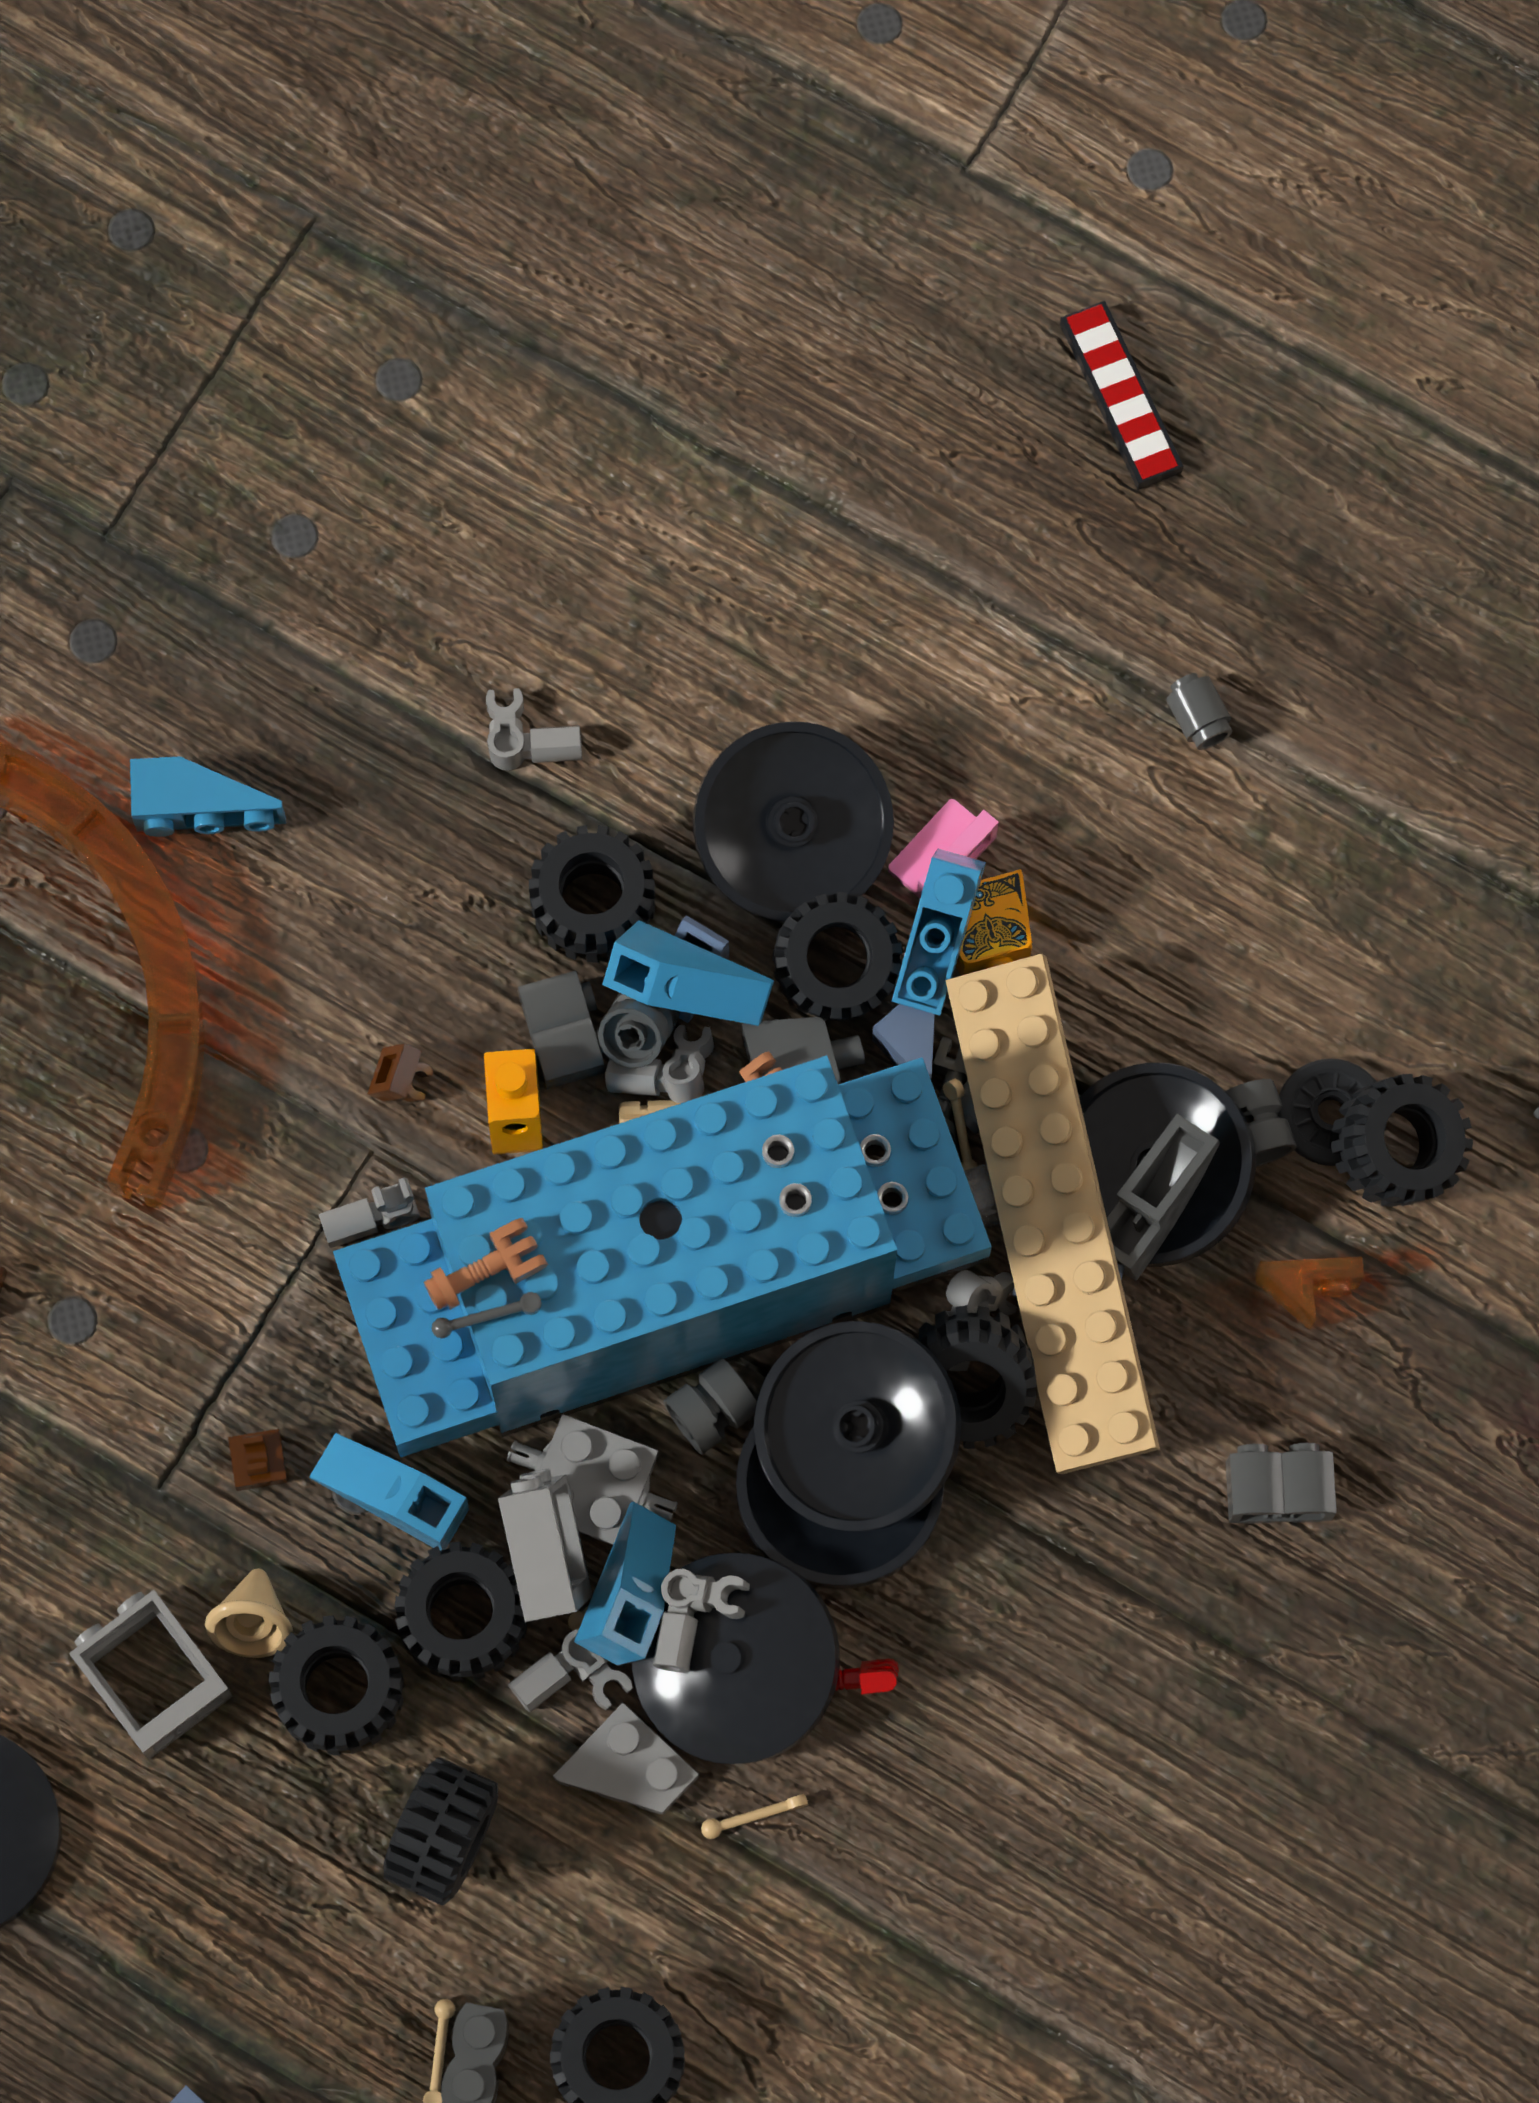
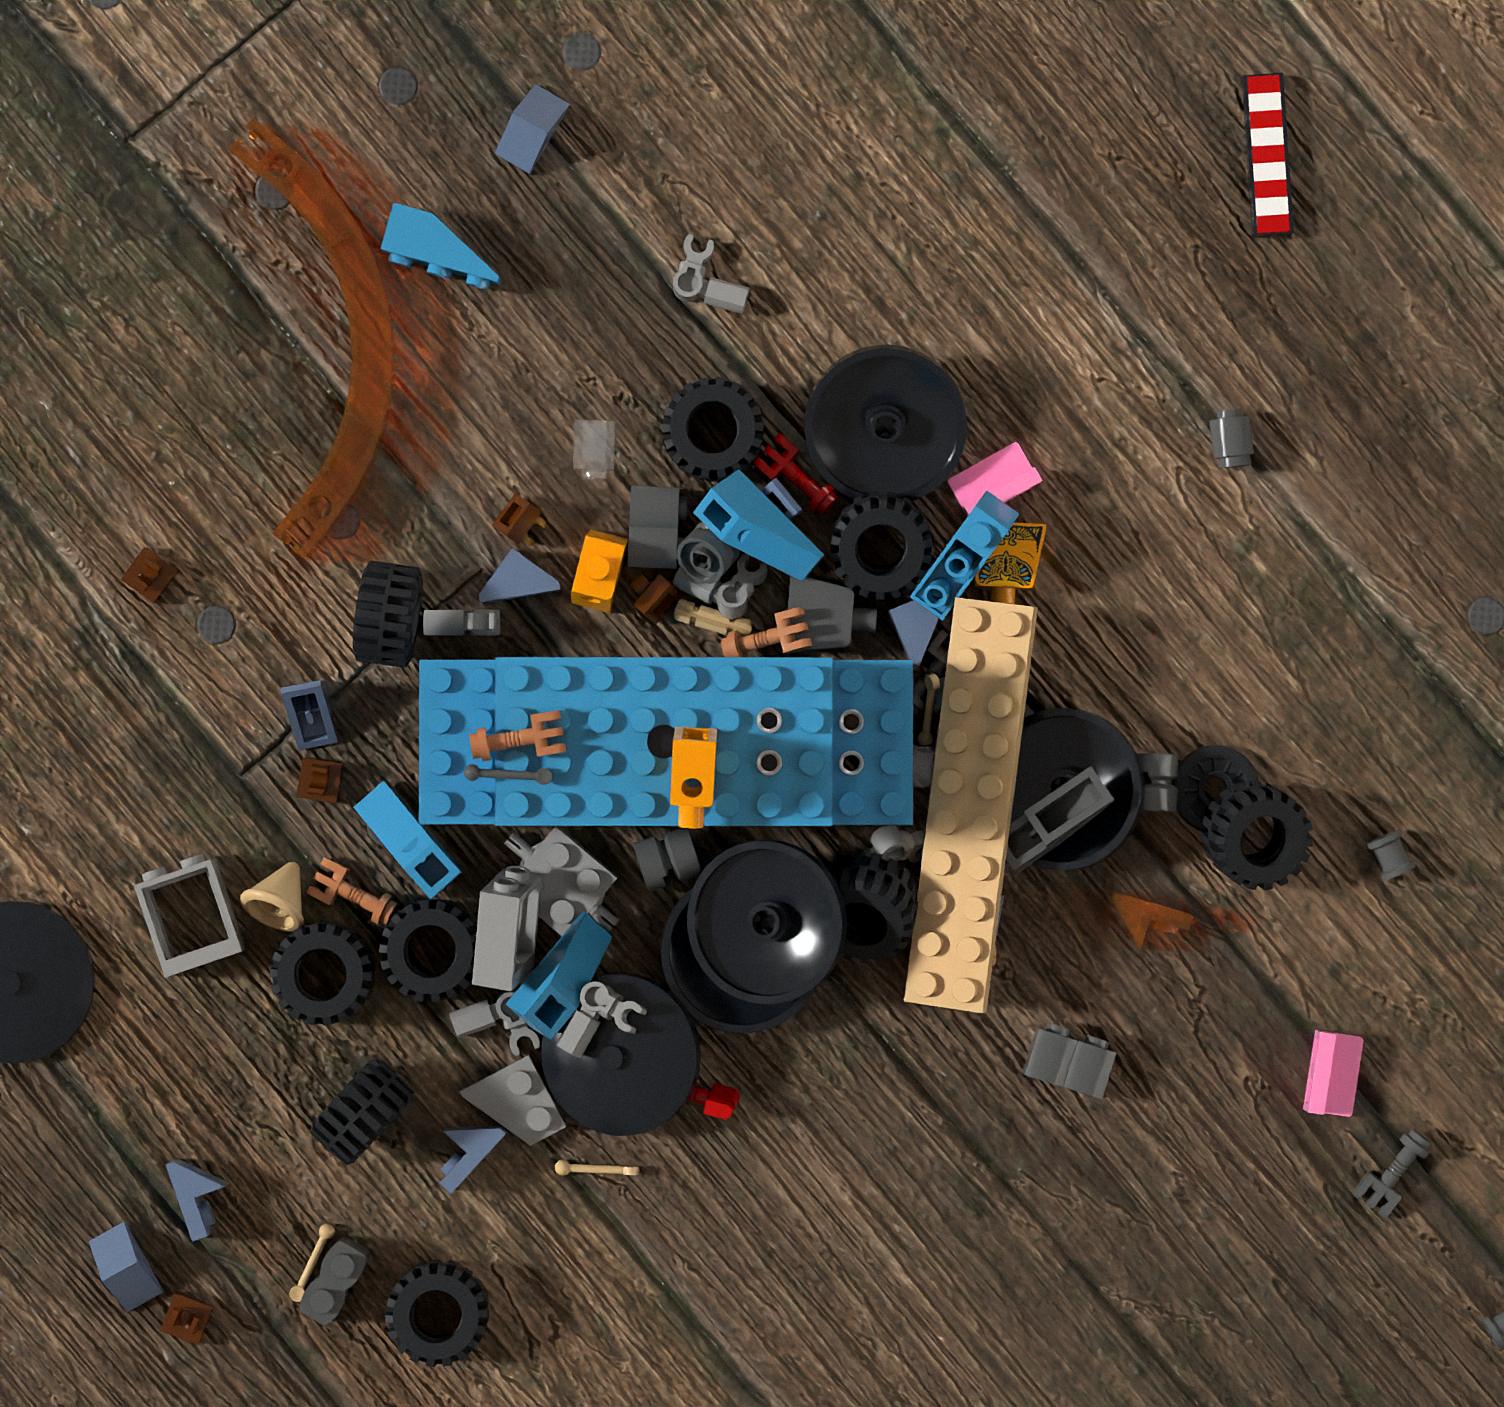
camera: 25 degrees right, 15 degrees up
(219, 1380) = (310, 714): none -> sand blue slope
(256, 2006) = (189, 1184): none -> sand blue slope
(264, 636) = (531, 128): none -> sand blue slope
(276, 1225) = (387, 614): none -> black tyre
(382, 1585) = (382, 908): none -> nougat hinge
(422, 1141) = (517, 579): none -> sand blue slope
(459, 962) = (594, 448): none -> clear brick
(590, 1107) = (654, 597): none -> reddish brown tile
(596, 1831) = (477, 1143): none -> sand blue slope
(707, 1207) = (693, 758): none -> light orange torso
(747, 932) = (821, 498): none -> red hinge

